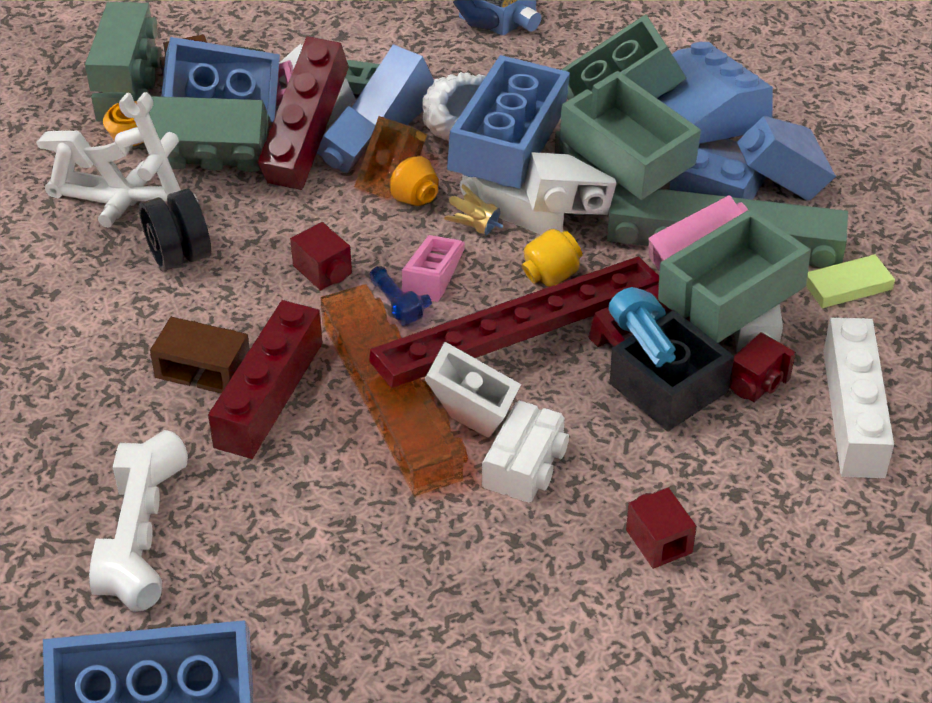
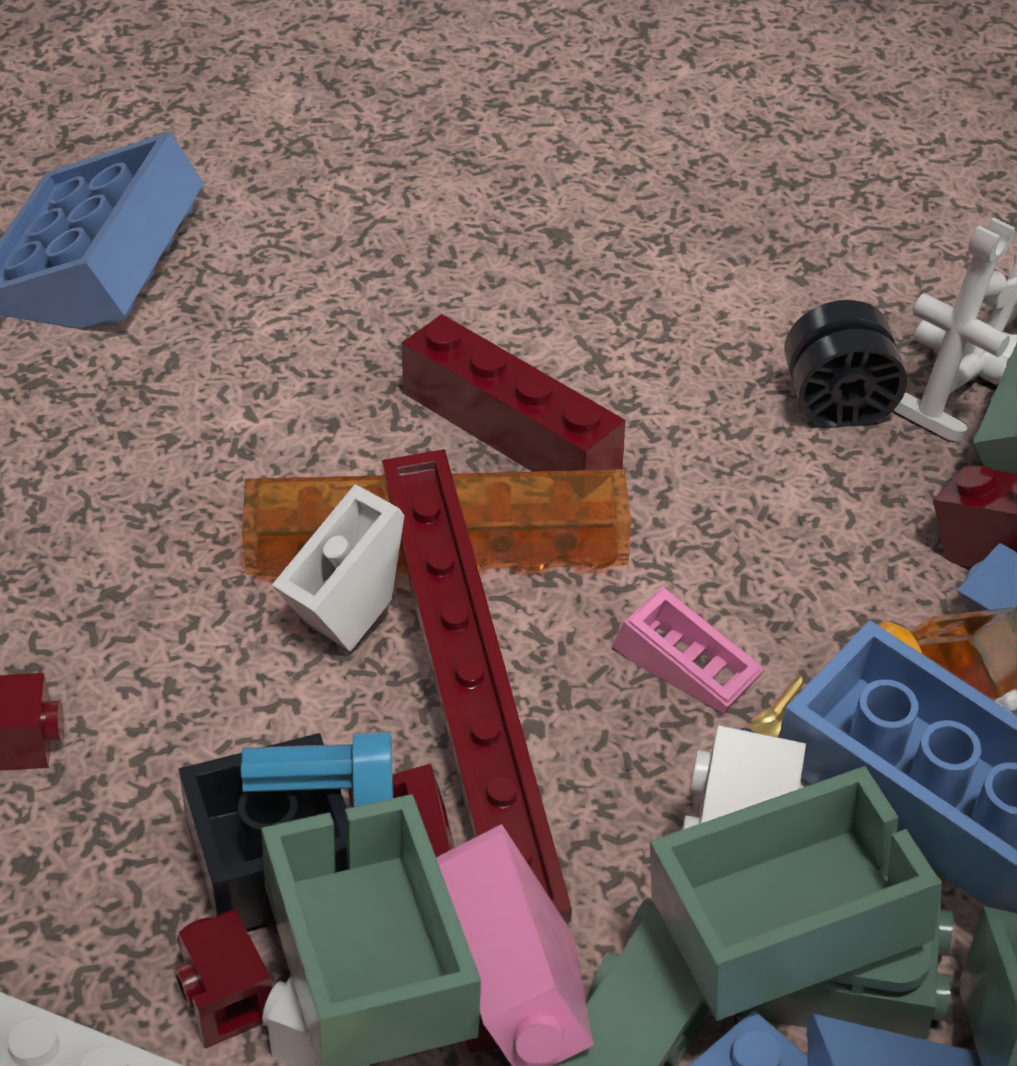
camera: 110 degrees right, 0 degrees up
(117, 562) = (284, 242): white plate -> none
(191, 345) = (598, 352): reddish brown piece -> none
(321, 256) = (744, 518): dark red brick -> none
(404, 306) = (600, 591): clear blue piece -> none
(524, 452) = (232, 625): white brick -> none
(551, 257) = (622, 789): yellow head -> none

